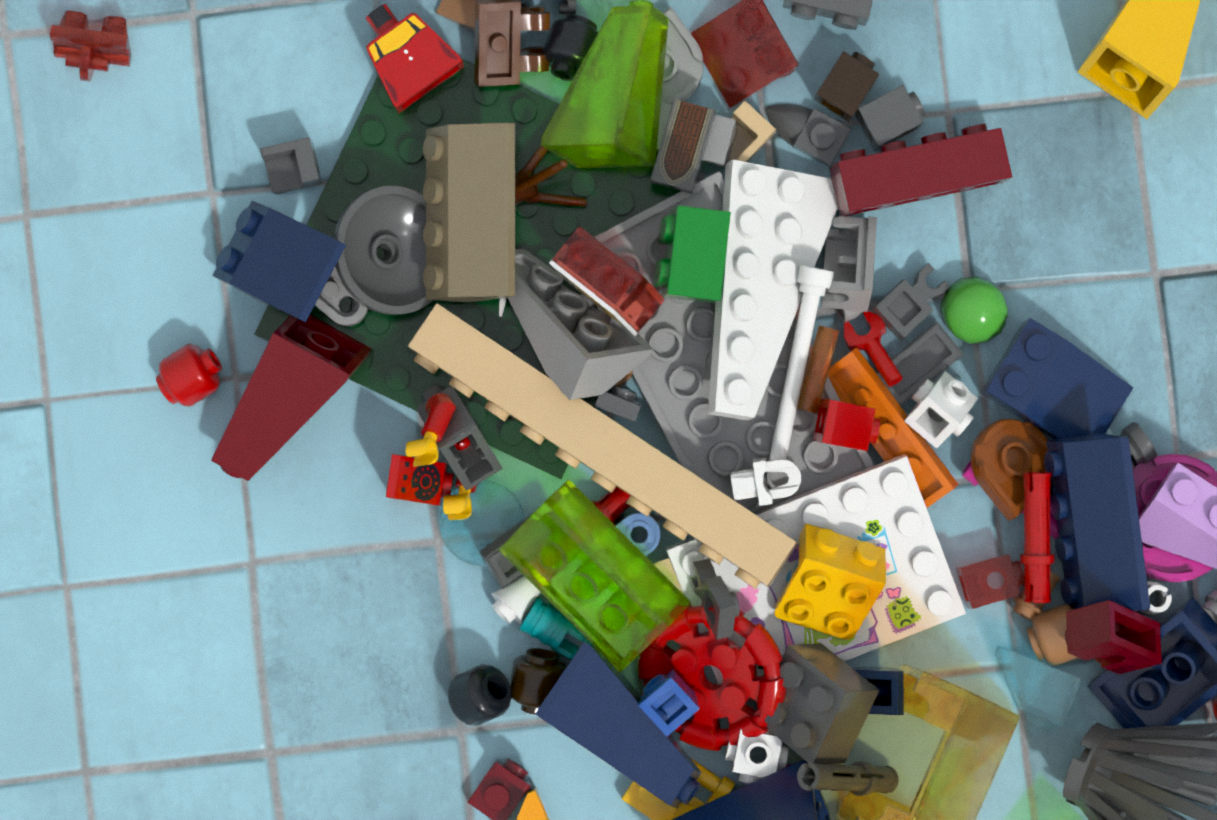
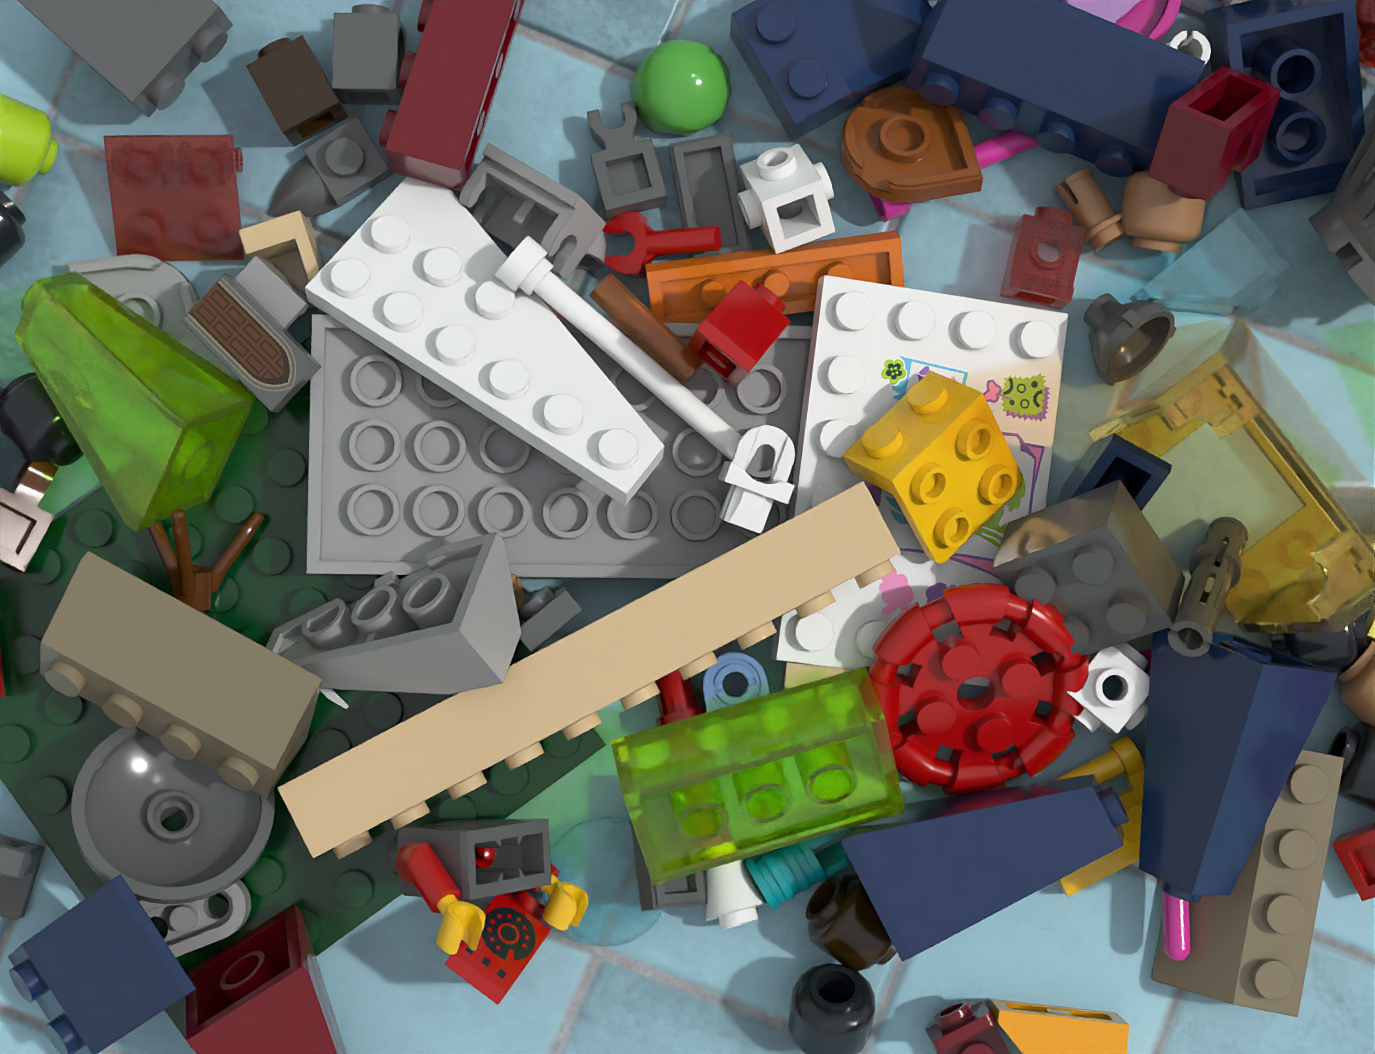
camera: 60 degrees left, 0 degrees up
(607, 281) = (367, 542): clear red piece -> none
(668, 701) = (972, 772): blue brick -> none
(693, 254) = (397, 401): green brick -> none
(715, 594) = (871, 628): dark grey plate -> none
(971, 655) = (1126, 335): none -> dark grey piece
(1037, 547) = (1045, 175): red pin -> none

